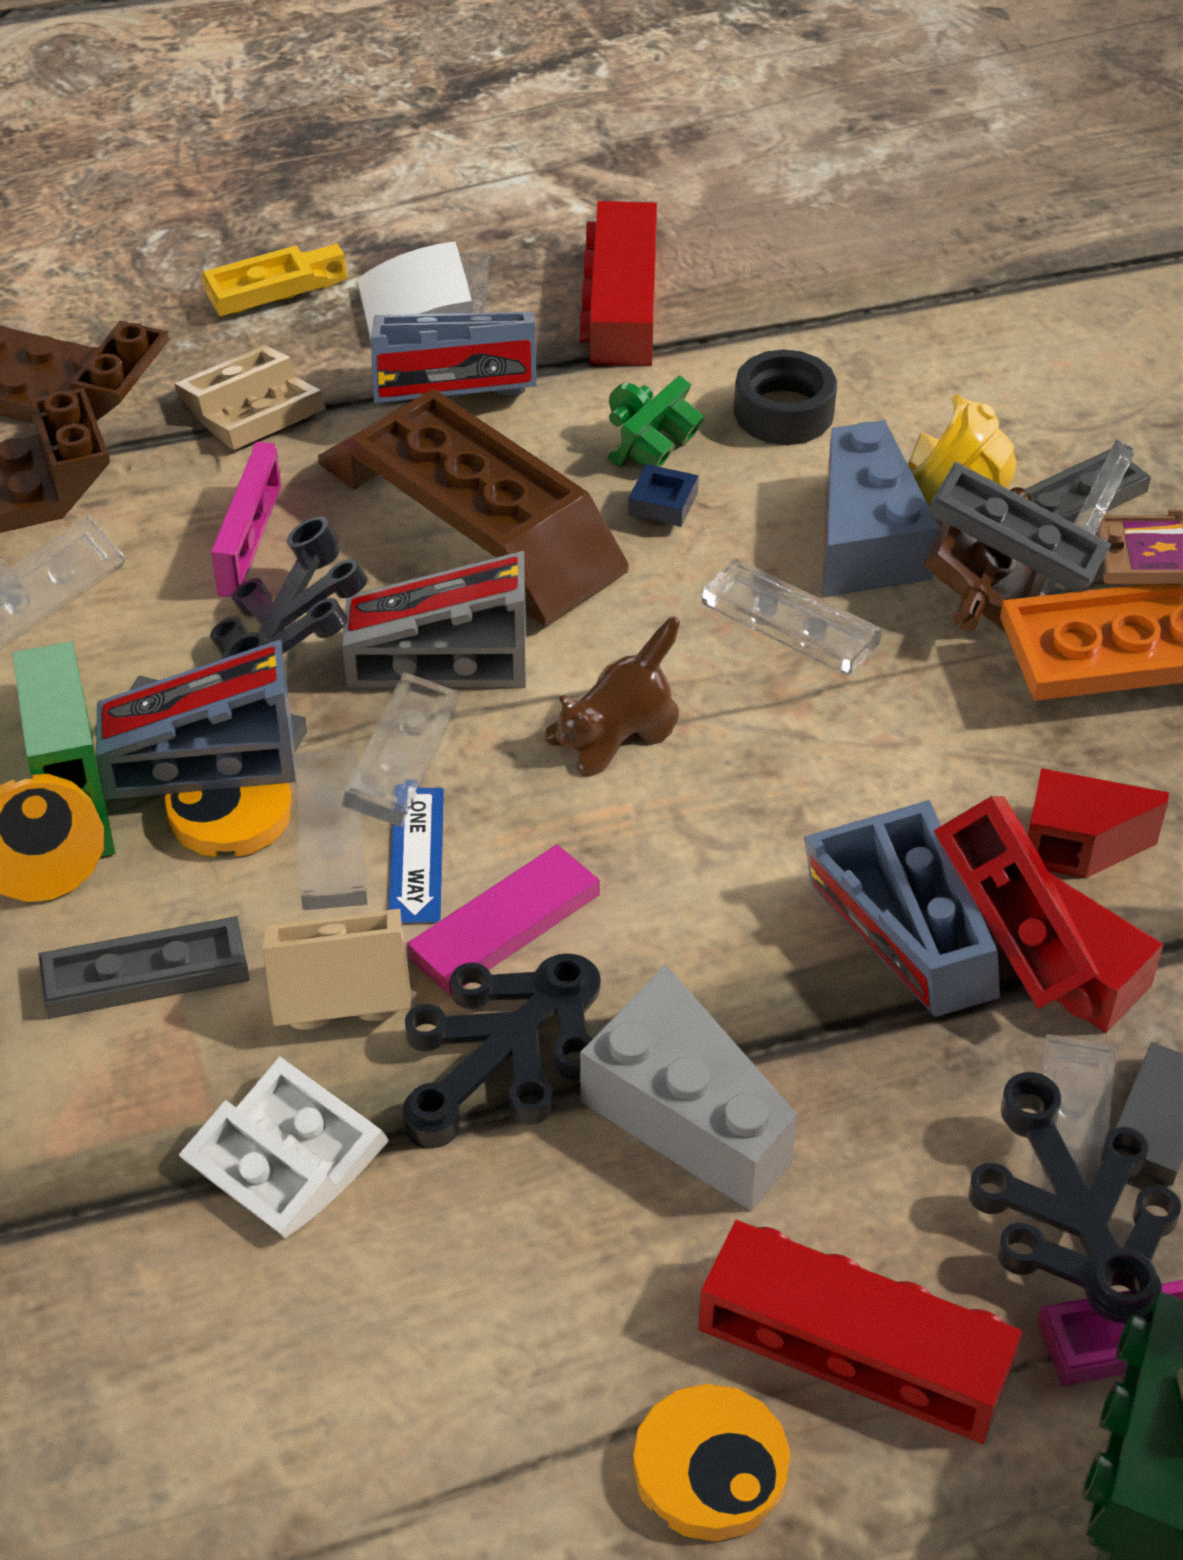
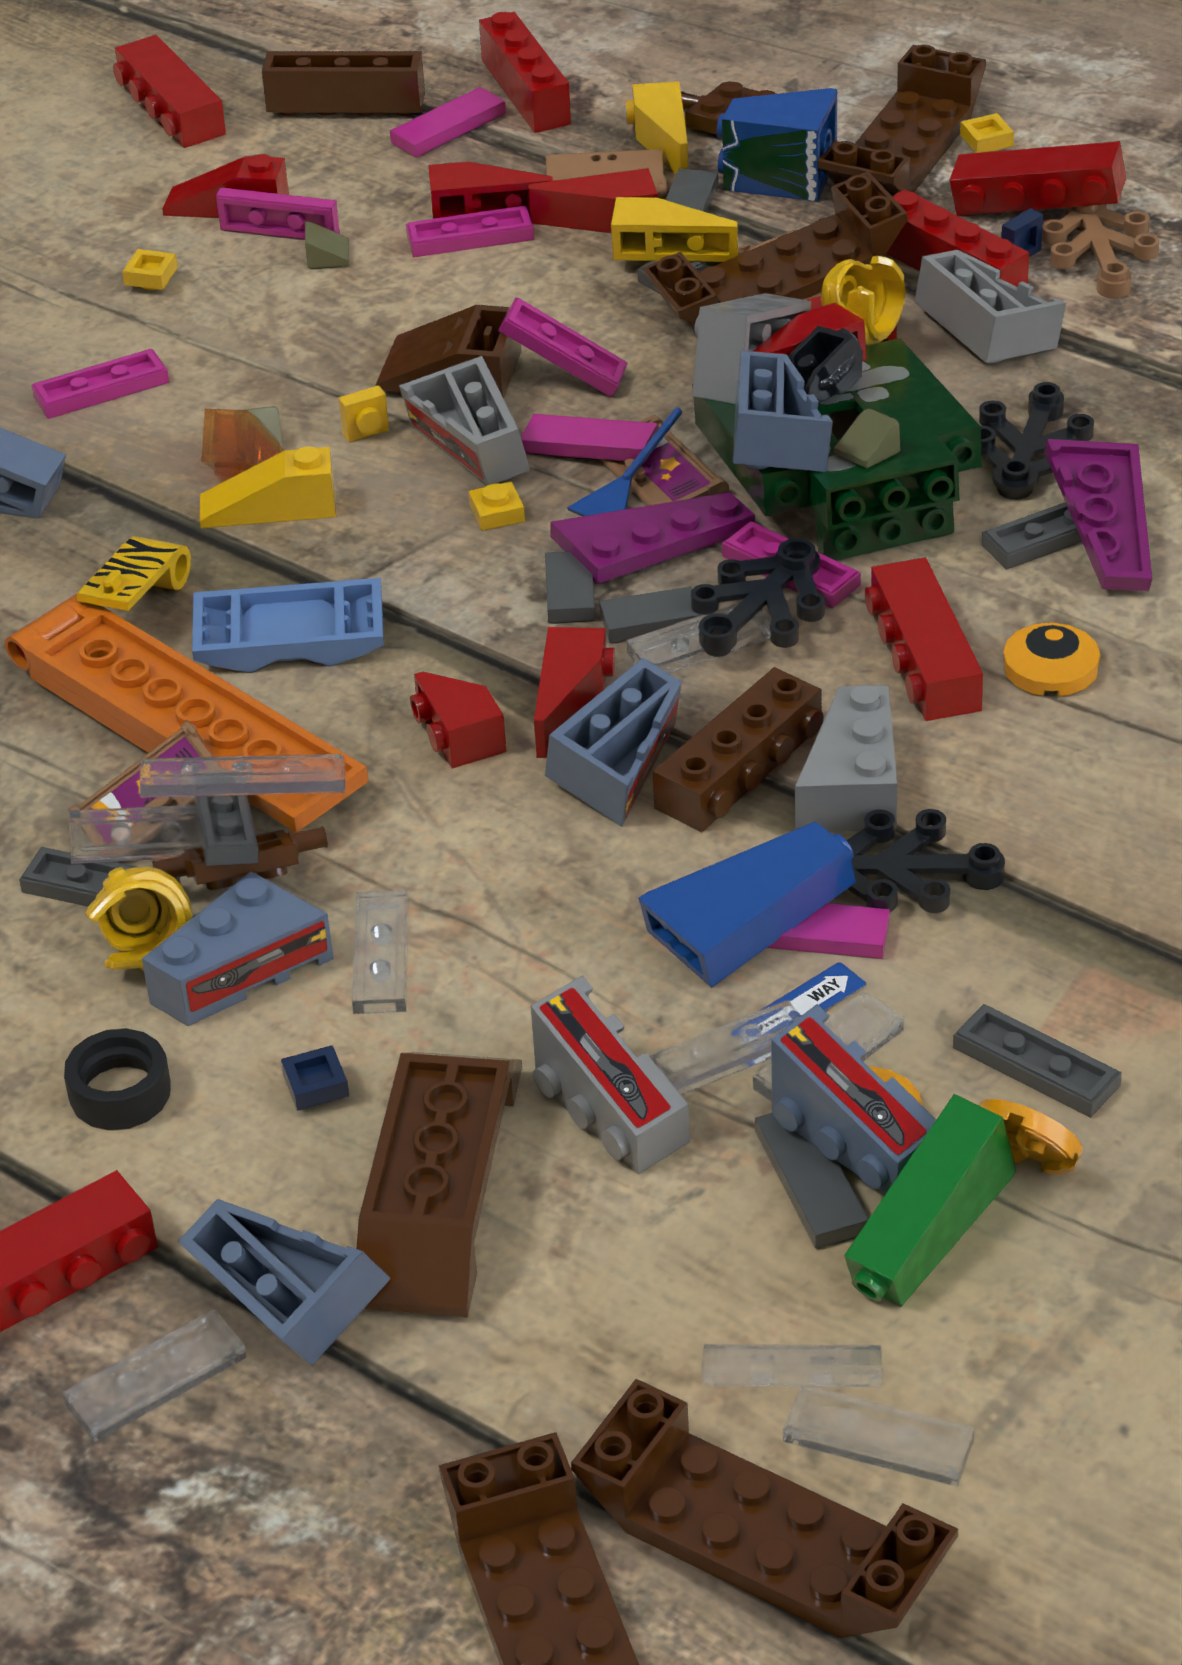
camera: 125 degrees left, 5 degrees down
(246, 518) = (590, 1290): dark pink tile -> none
(249, 396) = (423, 1419): tan slope -> none
(272, 277) = (246, 1522): yellow hinge -> none
(284, 1148) = (1078, 911): white slope -> none
(314, 547) = (680, 1172): black plant -> none
(336, 969) = (949, 936): tan brick -> none
(416, 283) = (178, 1400): white slope -> none
(560, 852) = (747, 901): none -> blue slope
(625, 701) = (564, 956): reddish brown animal -> none
(646, 417) = (232, 1129): green hips -> none
(817, 1019) = (737, 749): none -> reddish brown brick
(1017, 899) = (582, 674): red slope -> none
(1074, 566) = (242, 775): none -> clear tile

